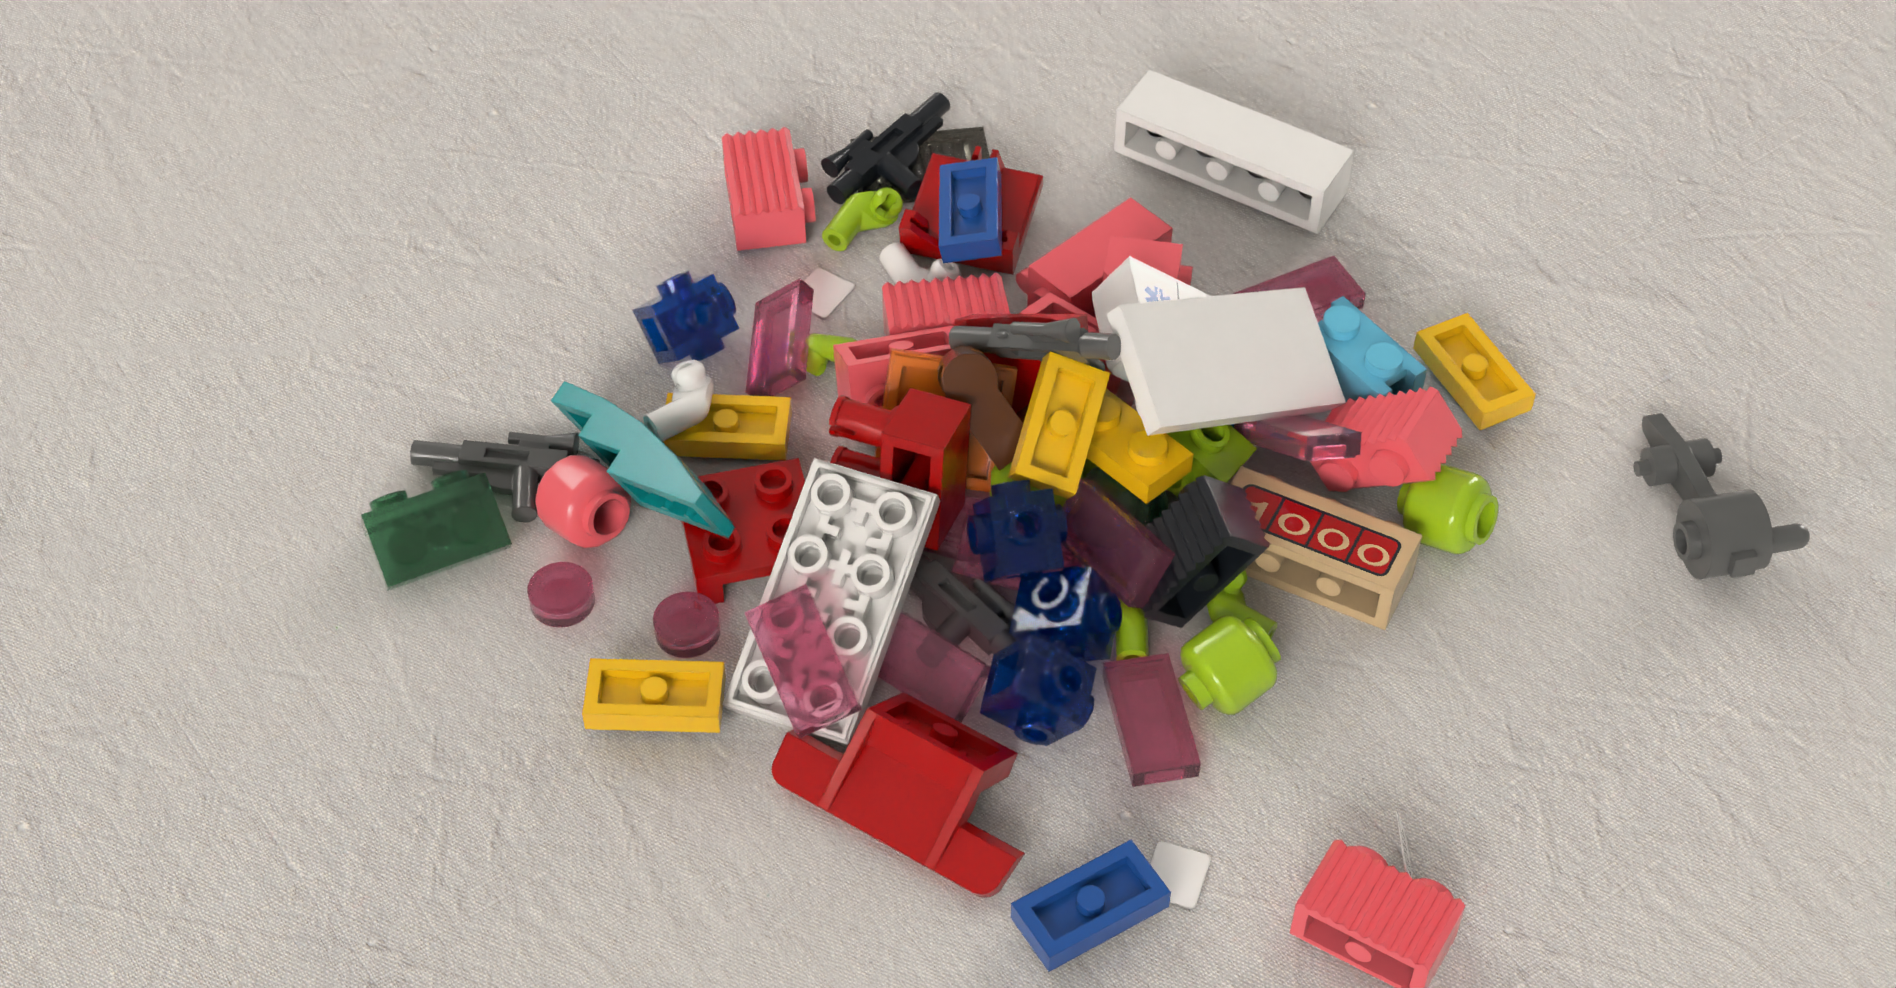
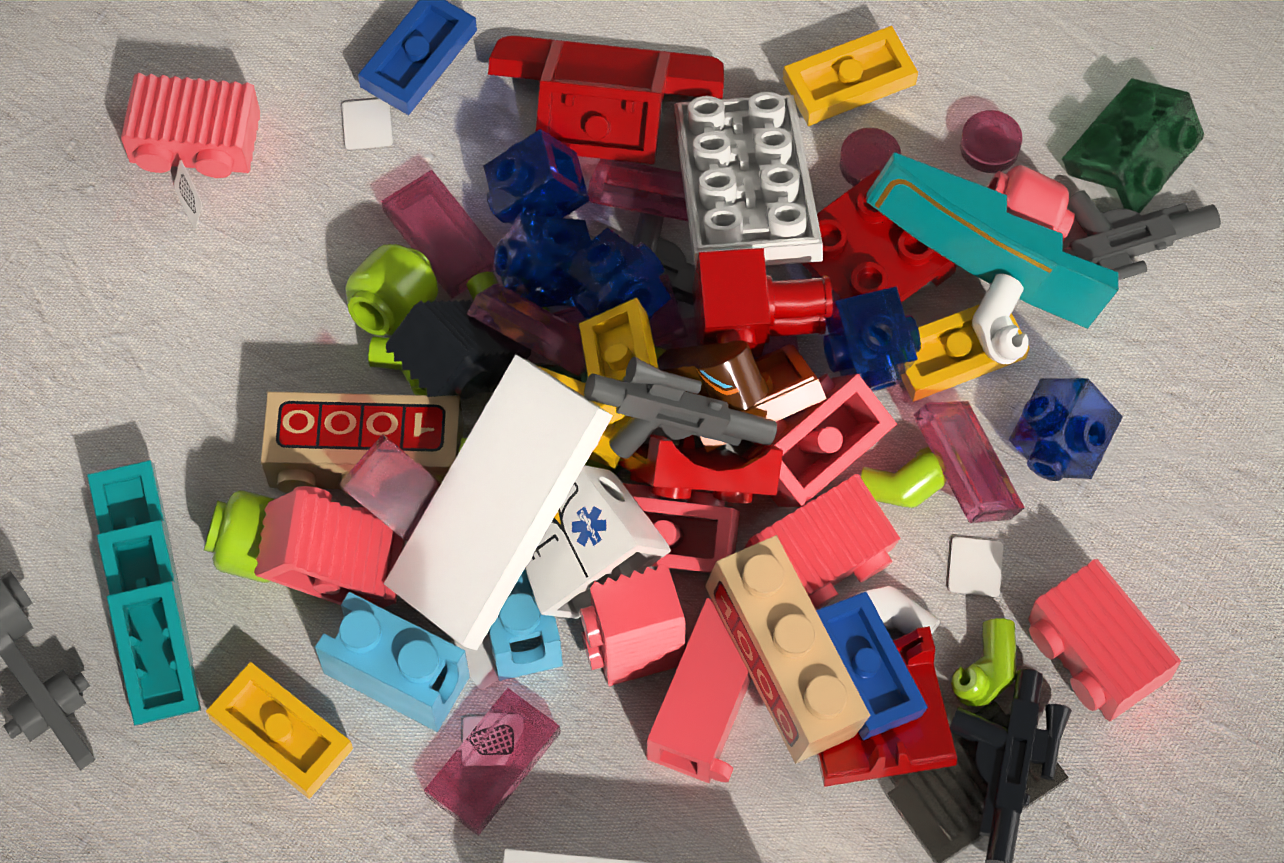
camera: 155 degrees right, 15 degrees up
(802, 411) = (872, 338): none -> clear blue brick
(803, 661) = (736, 111): clear pink tile -> none
(1033, 214) = (786, 649): none -> tan brick
(1563, 517) = (144, 593): none -> teal slope

